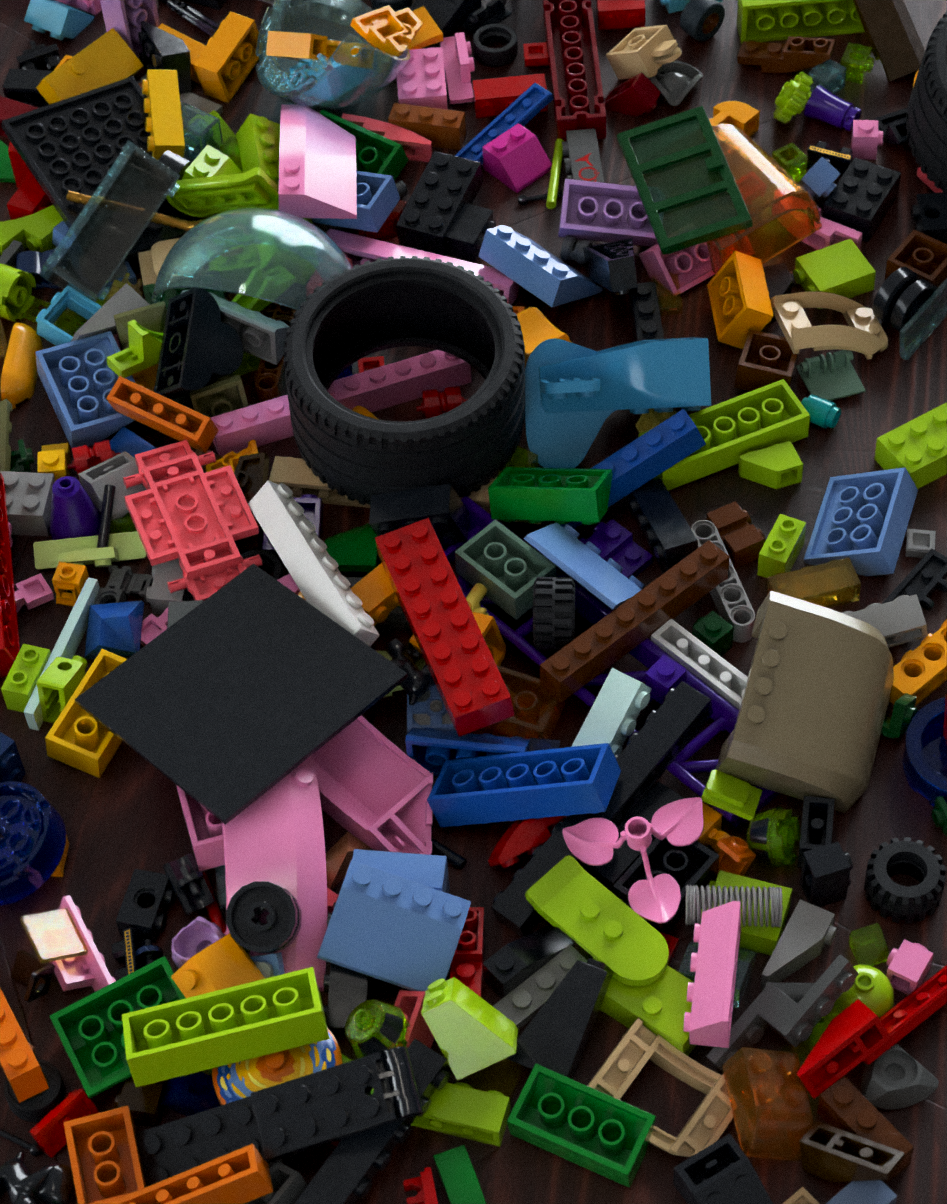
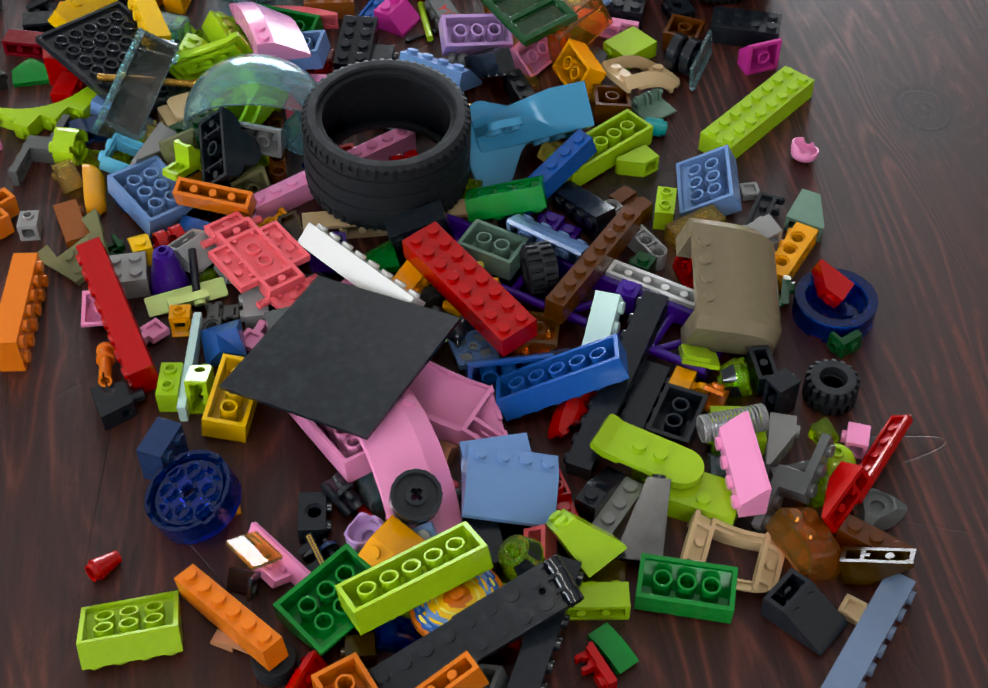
camera: 20 degrees left, 5 degrees down
(678, 821) = (674, 379): bright pink plant -> none

